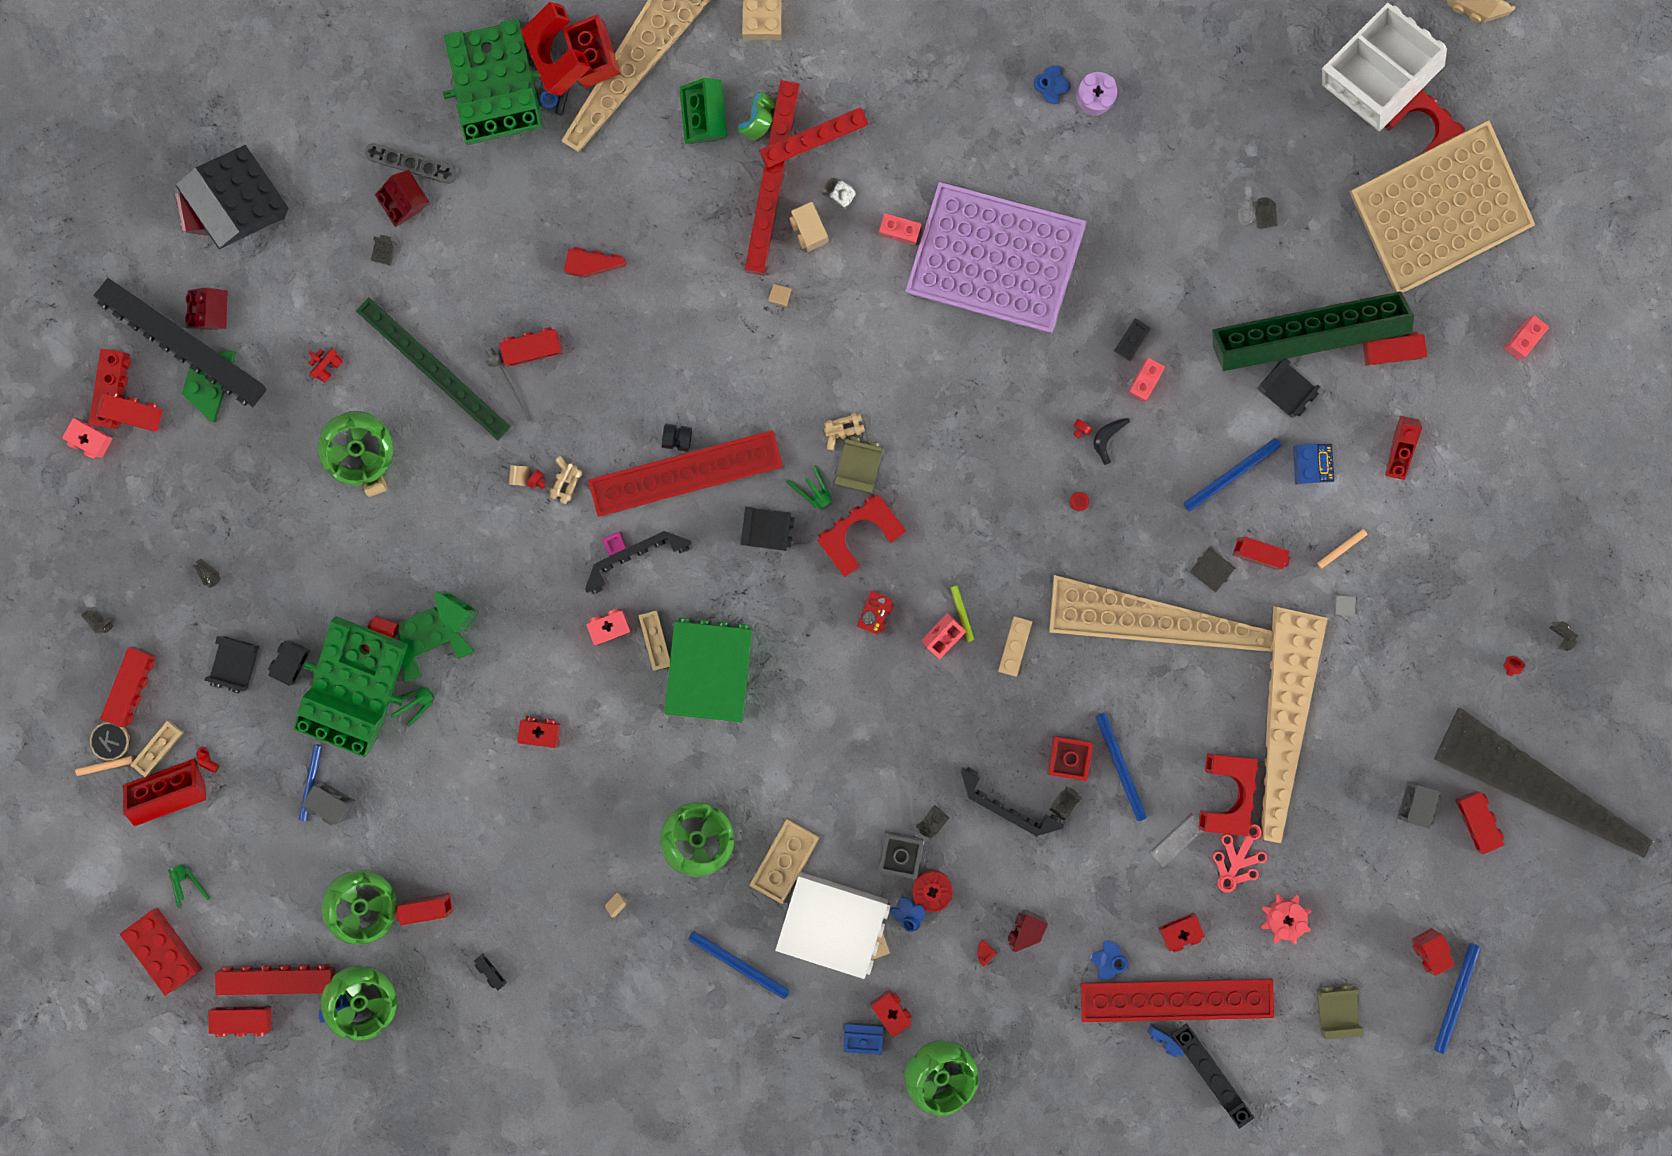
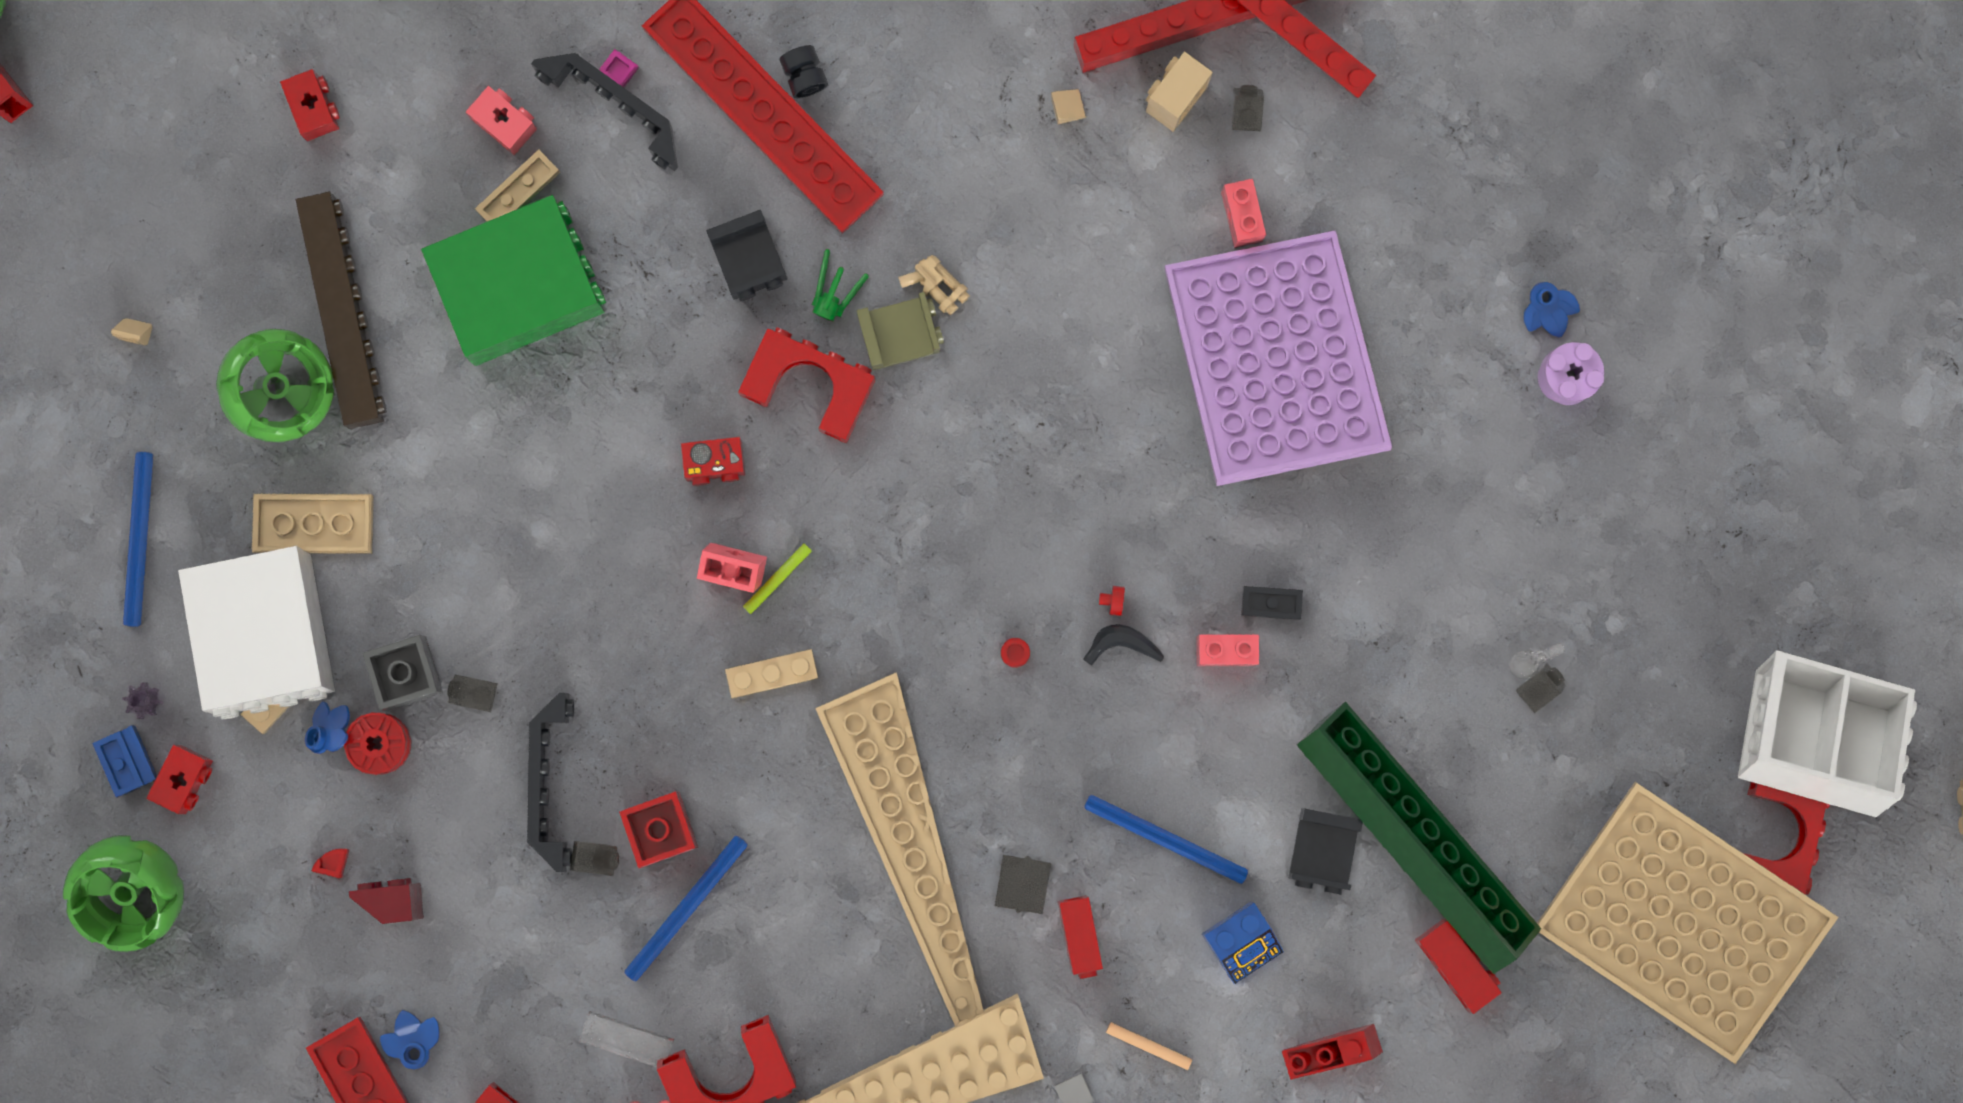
camera: 55 degrees right, 5 degrees down
(668, 779) = (340, 310): none -> dark brown brick
(837, 1005) = (134, 699): none -> clear purple gear

